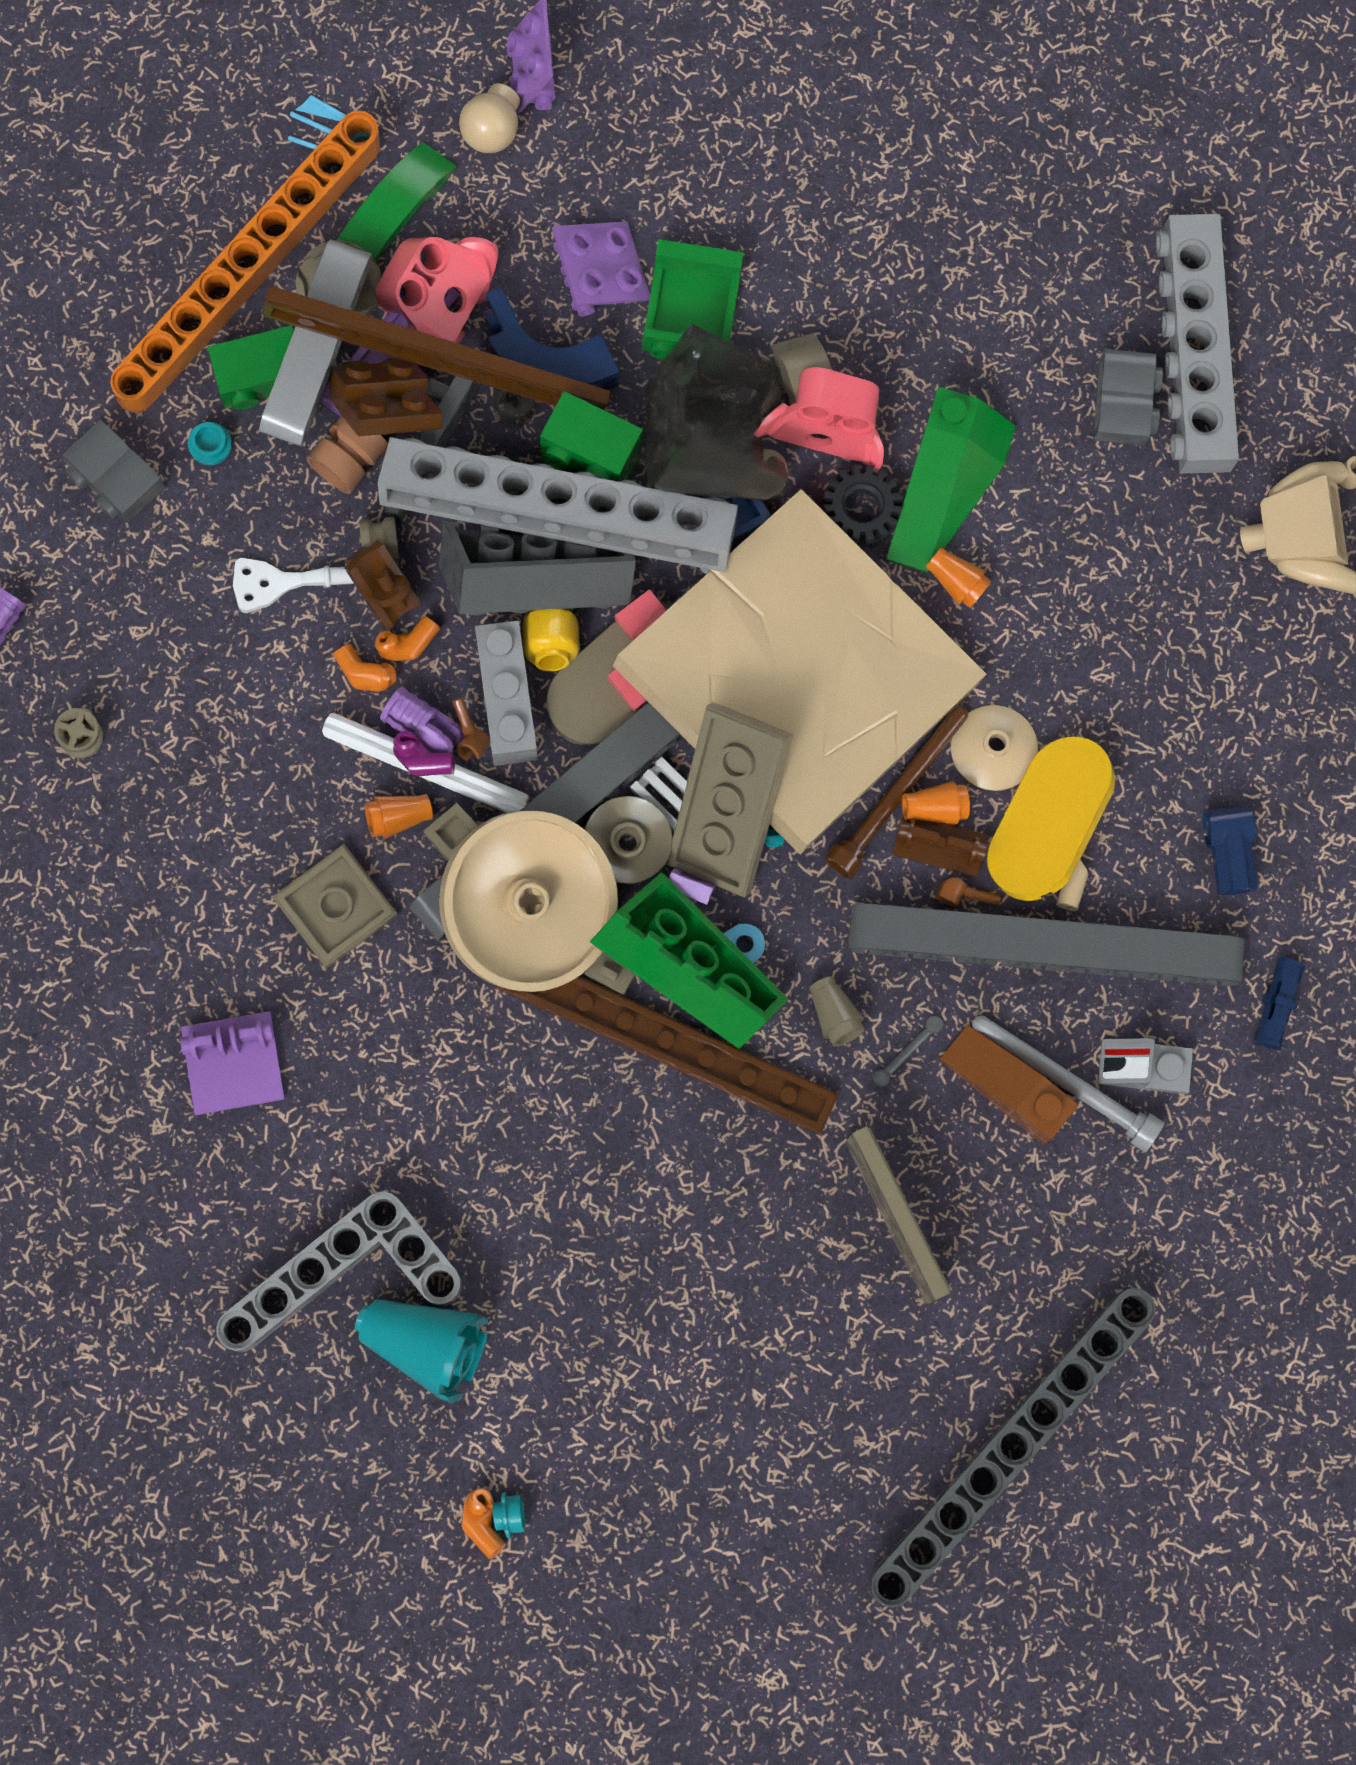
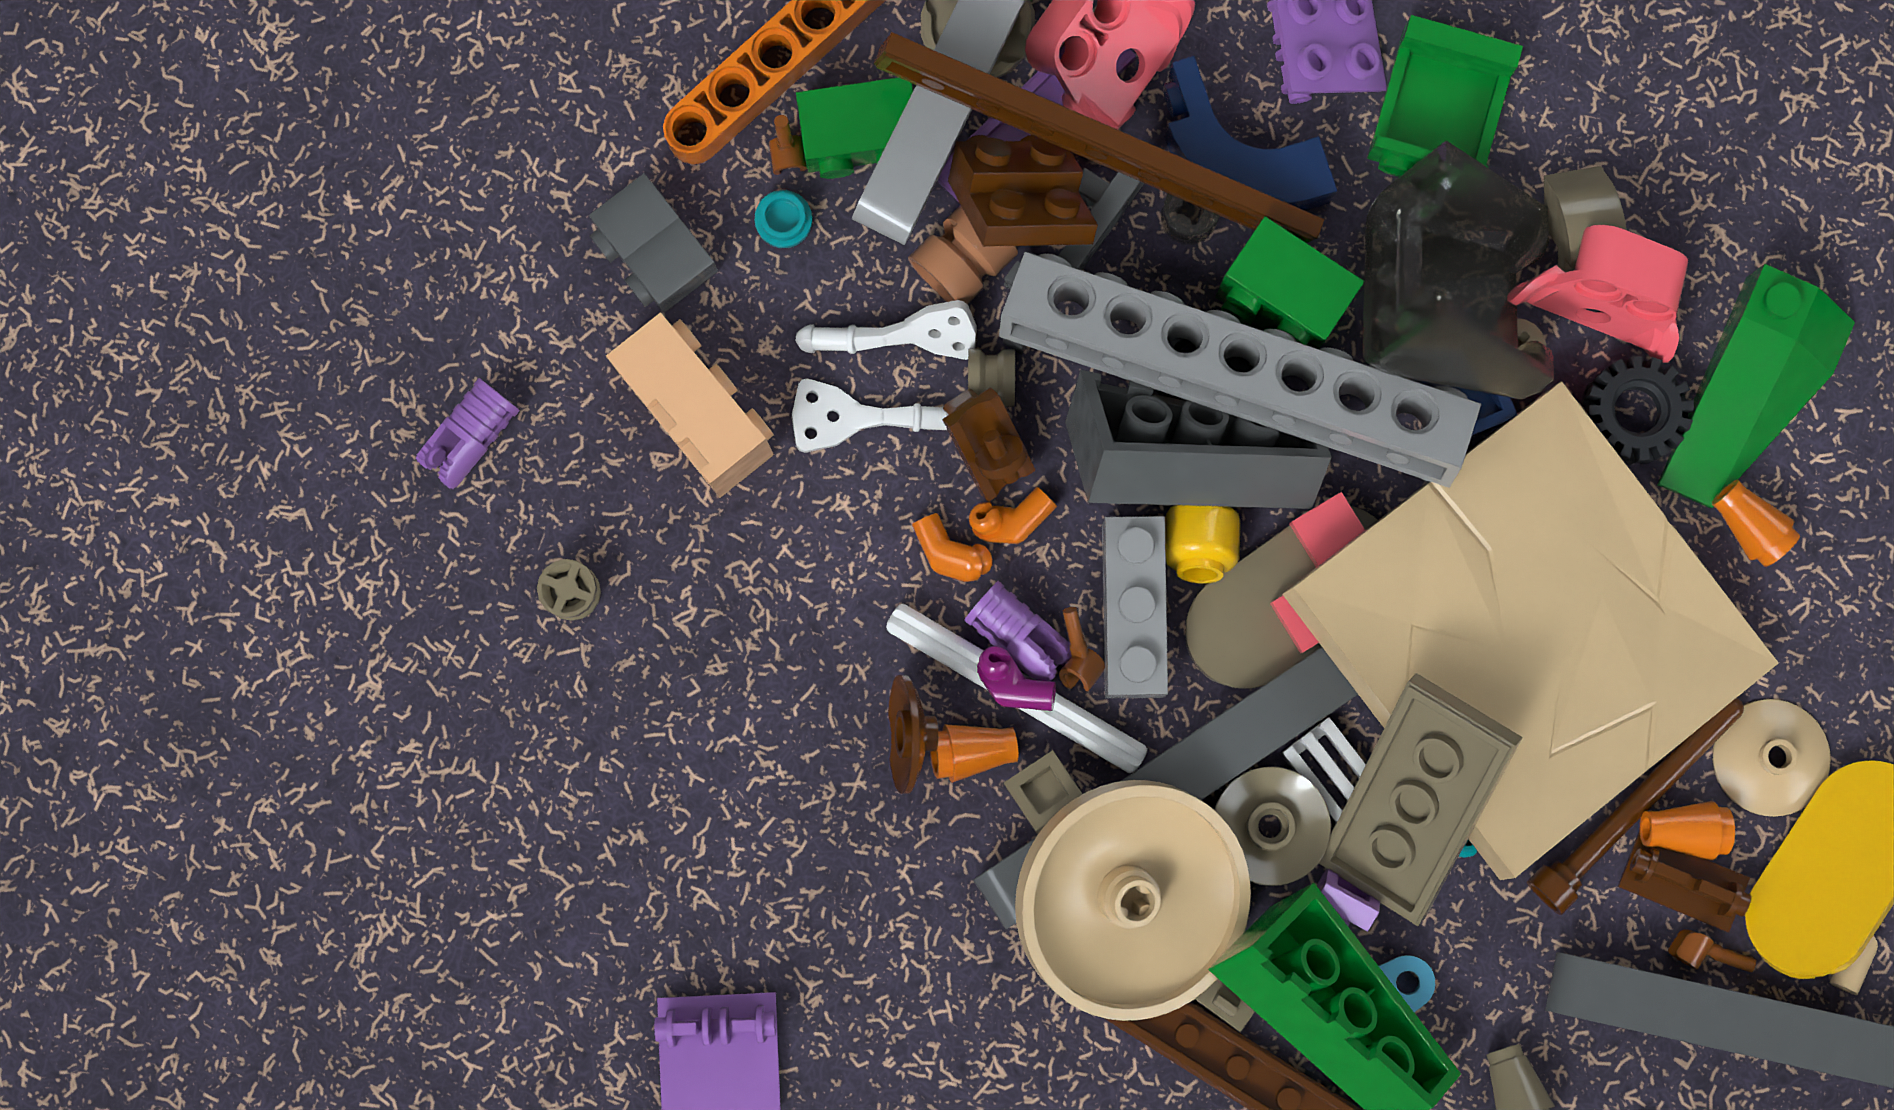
camera: 20 degrees right, 5 degrees up
(156, 584) = (693, 402): none -> light nougat wedge
(205, 391) = (786, 149): none -> dark orange hand
(317, 512) = (914, 329): none -> white piece
(335, 906) = (875, 862): dark tan tile -> none
(348, 803) = (910, 734): none -> reddish brown dish

